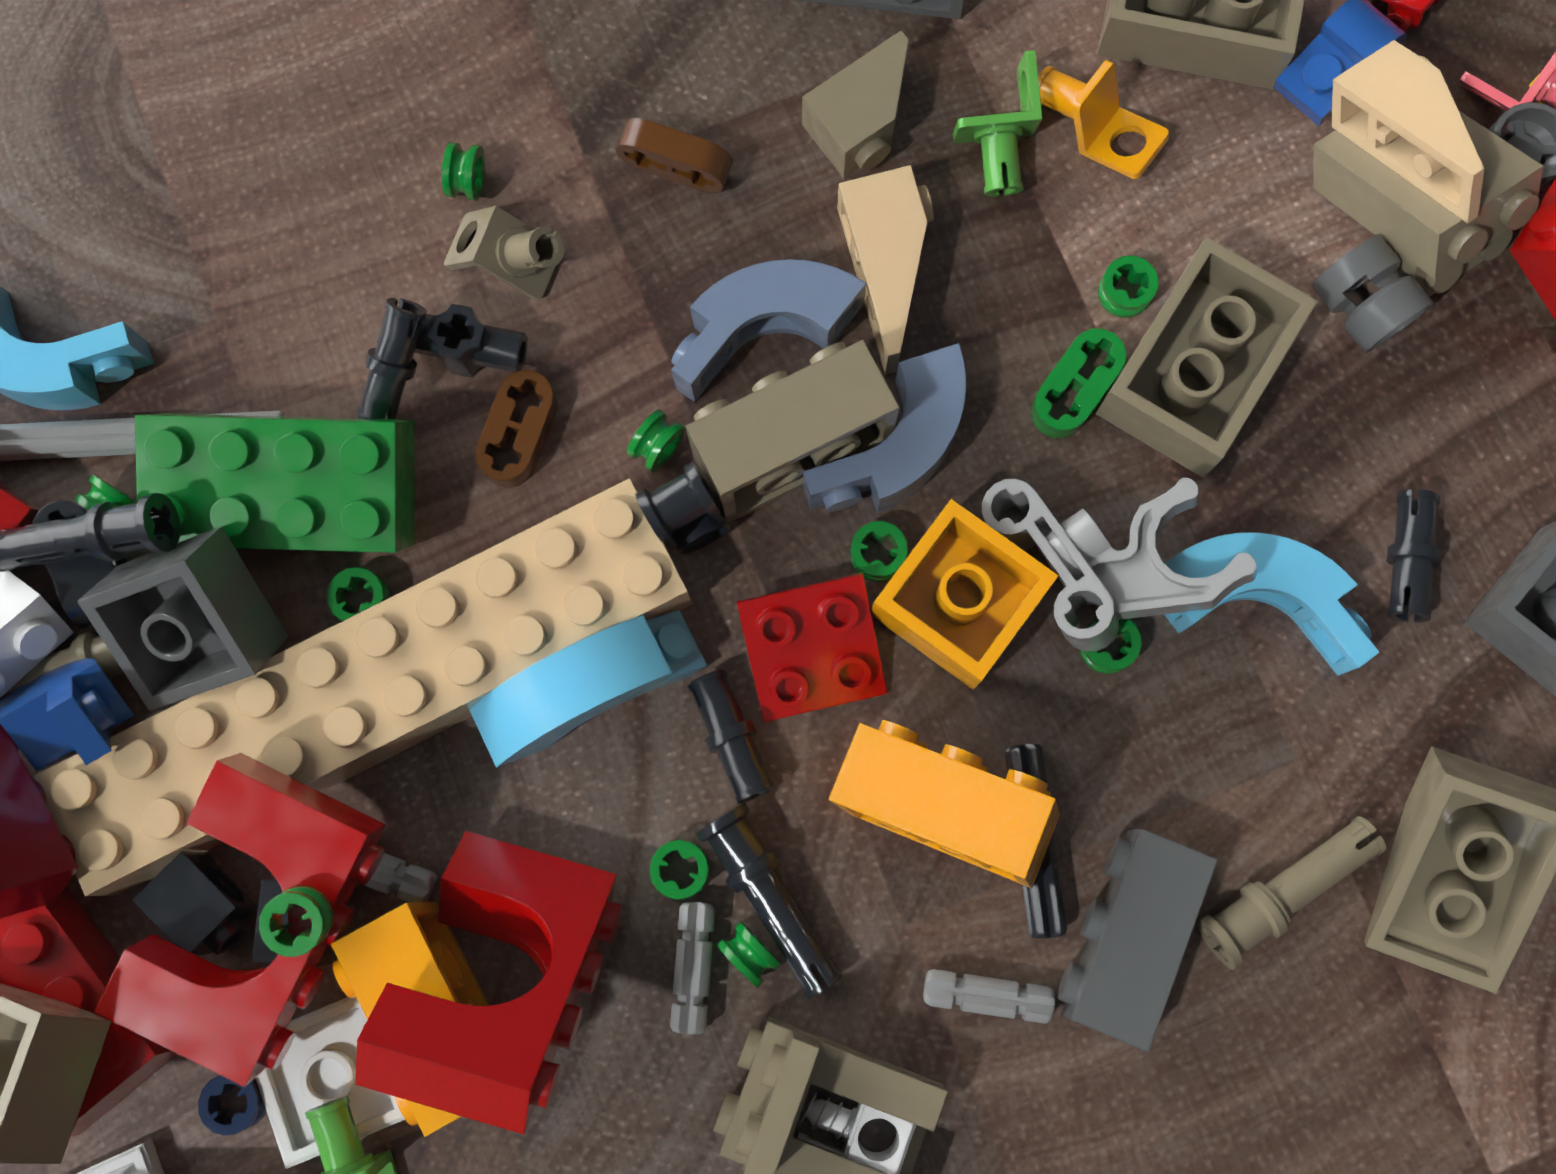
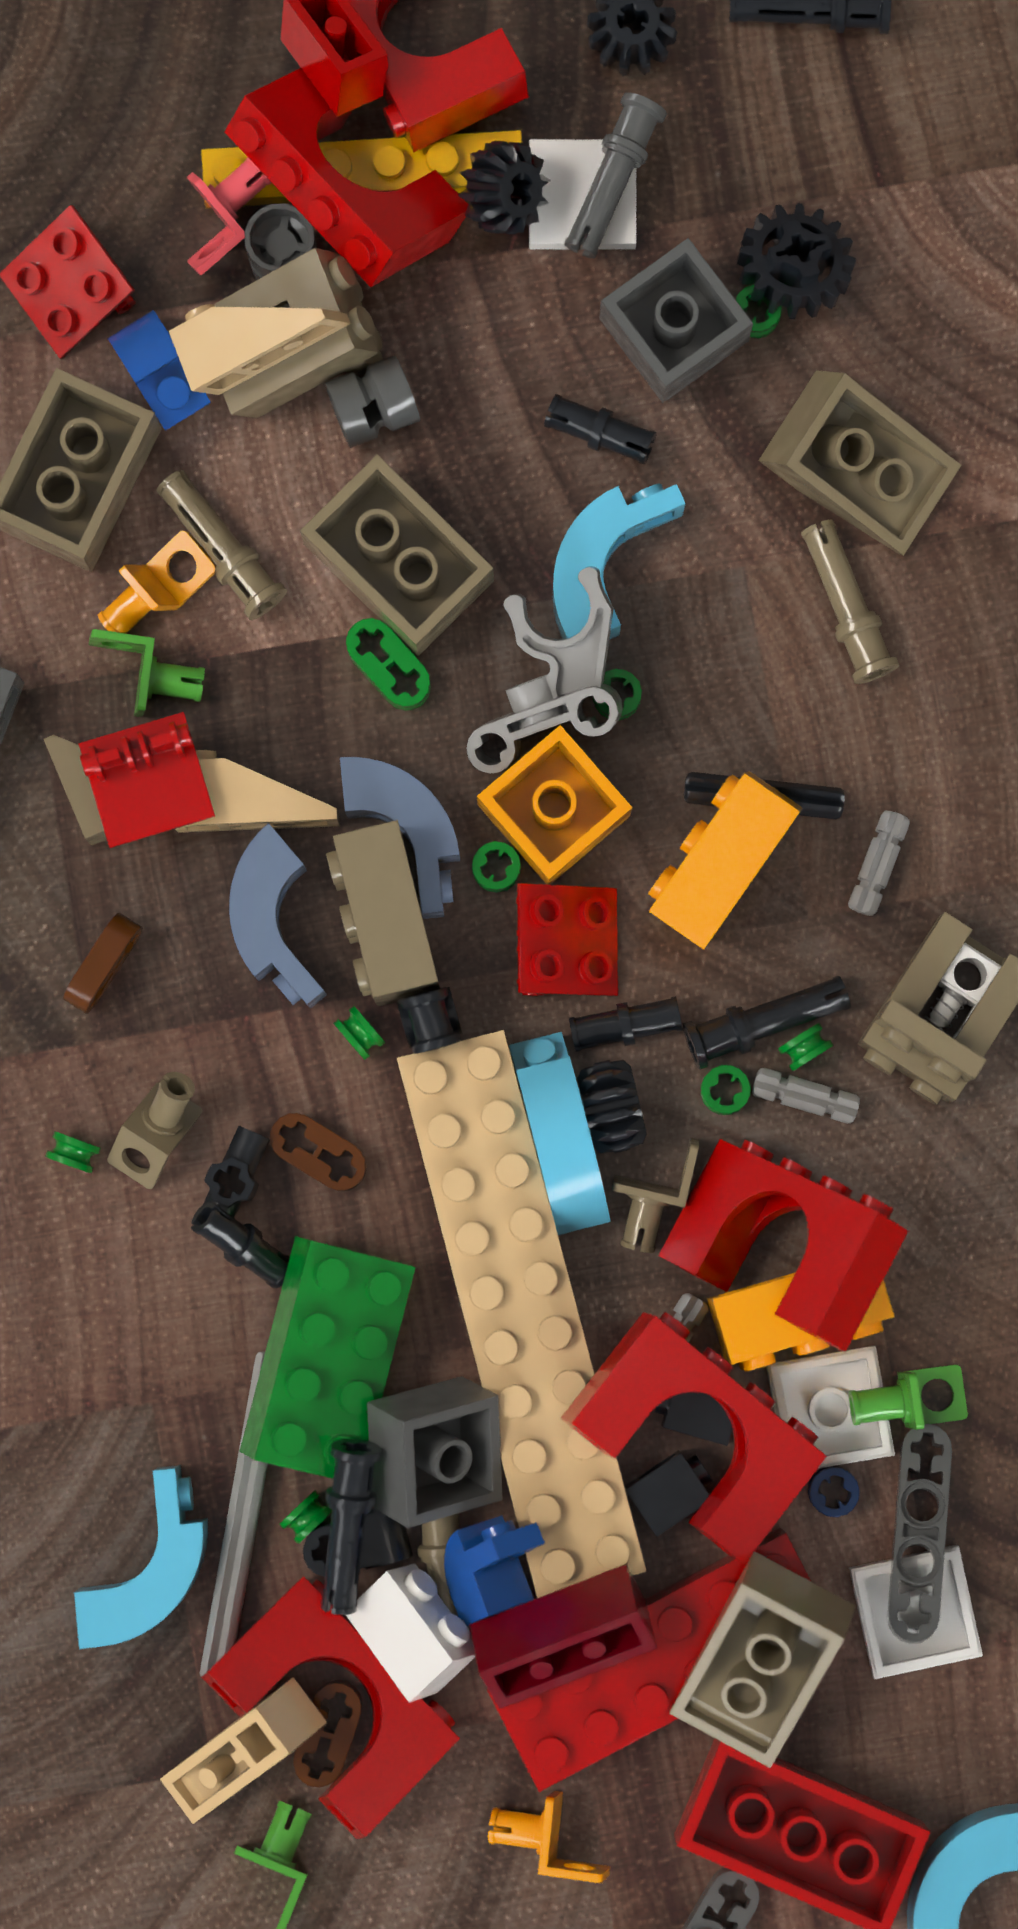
camera: 80 degrees left, 5 degrees up
(275, 933) = (726, 1376): green bush -> none
(348, 582) = (421, 1323): green bush -> none
(531, 807) = (649, 1202): none -> dark tan bracket
(627, 738) = (611, 1106): none -> black gear
(881, 138) = (146, 780): none -> red hinge
(1136, 937) = (857, 735): dark grey brick -> none
(1137, 272) = (300, 588): green bush -> none
(1148, 193) = (235, 563): none -> dark tan pin

